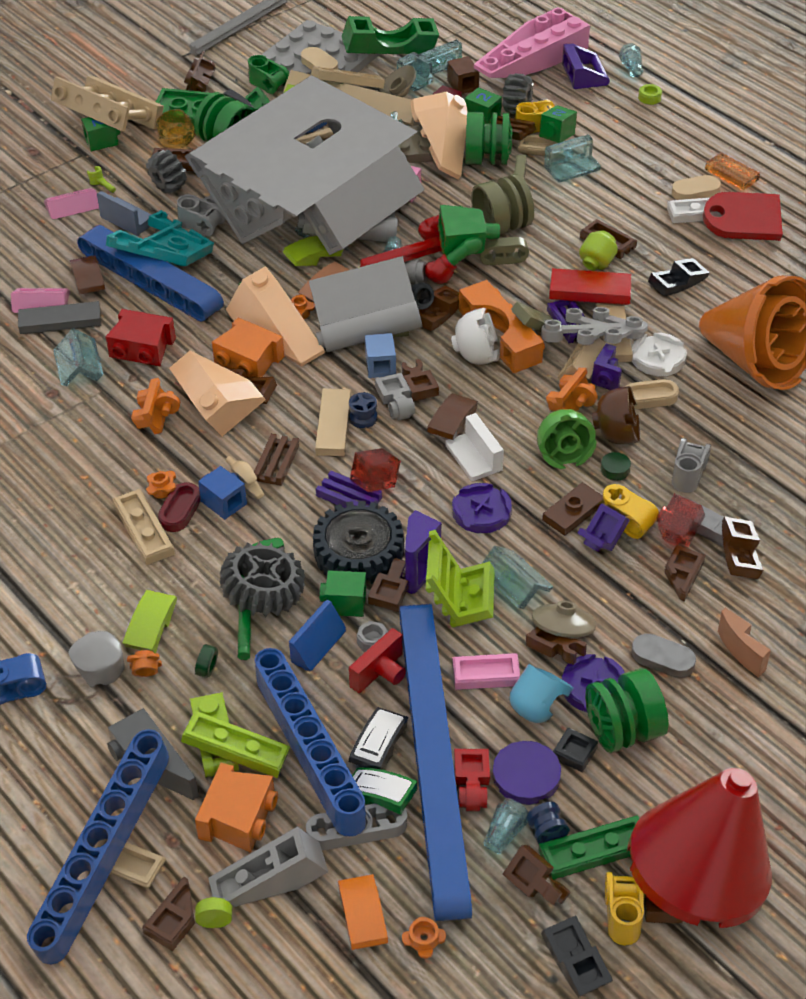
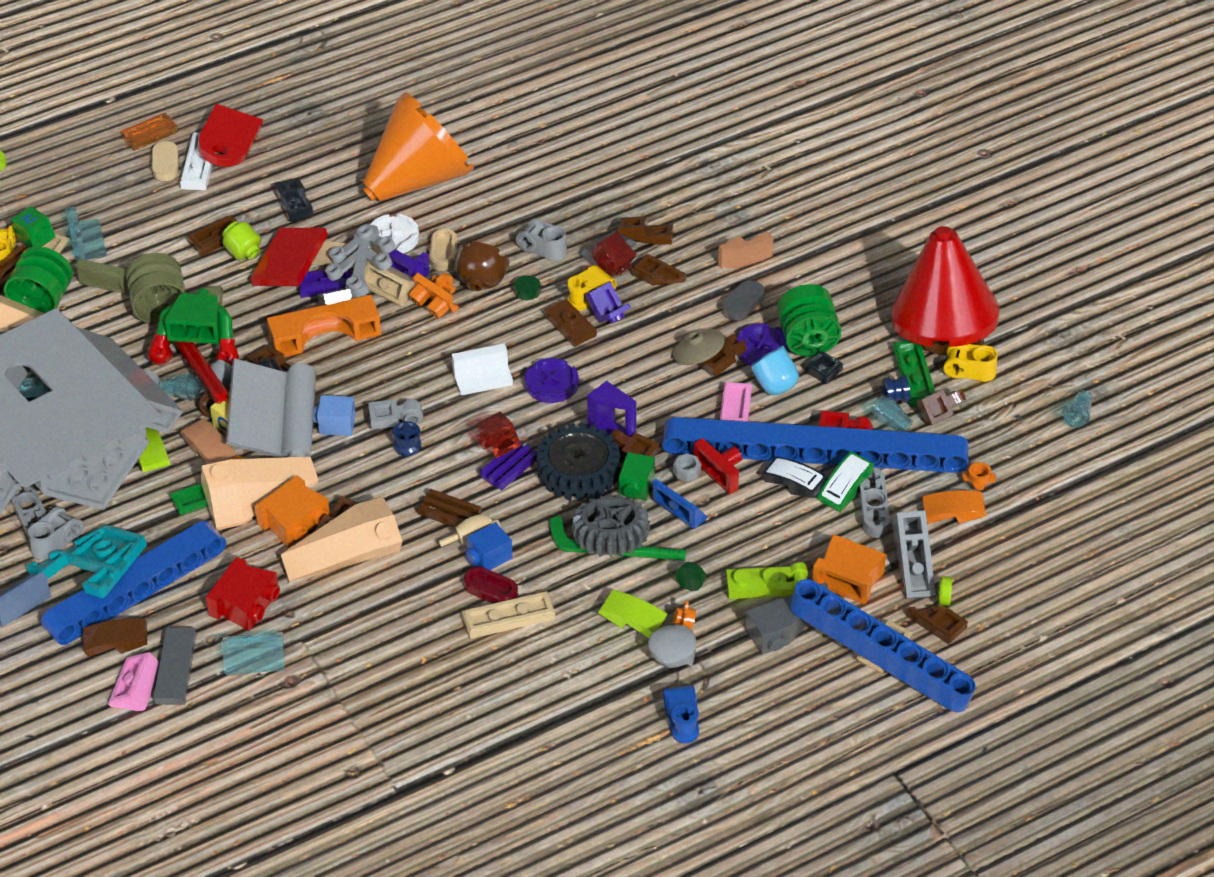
camera: 80 degrees left, 0 degrees up
(154, 406) = (353, 584): orange hips -> none
(161, 483) = (463, 600): orange plate -> none
(235, 744) = (791, 558): lime tile -> none
(310, 743) = (794, 512): blue beam -> none
(333, 422) = (411, 464): tan tile -> none
(420, 382) = (379, 392): reddish brown plate -> none
(451, 416) = (437, 379): reddish brown slope -> none
(463, 592) = (657, 396): lime plate -> none
(476, 337) = (342, 341): white cylinder -> none
(515, 576) = (643, 370): clear light blue panel -> none
(526, 772) = (841, 394): dark purple tile -> none
(566, 438) = (493, 305): bright green cylinder -> none
(576, 957) = (1008, 398): black slope -> none

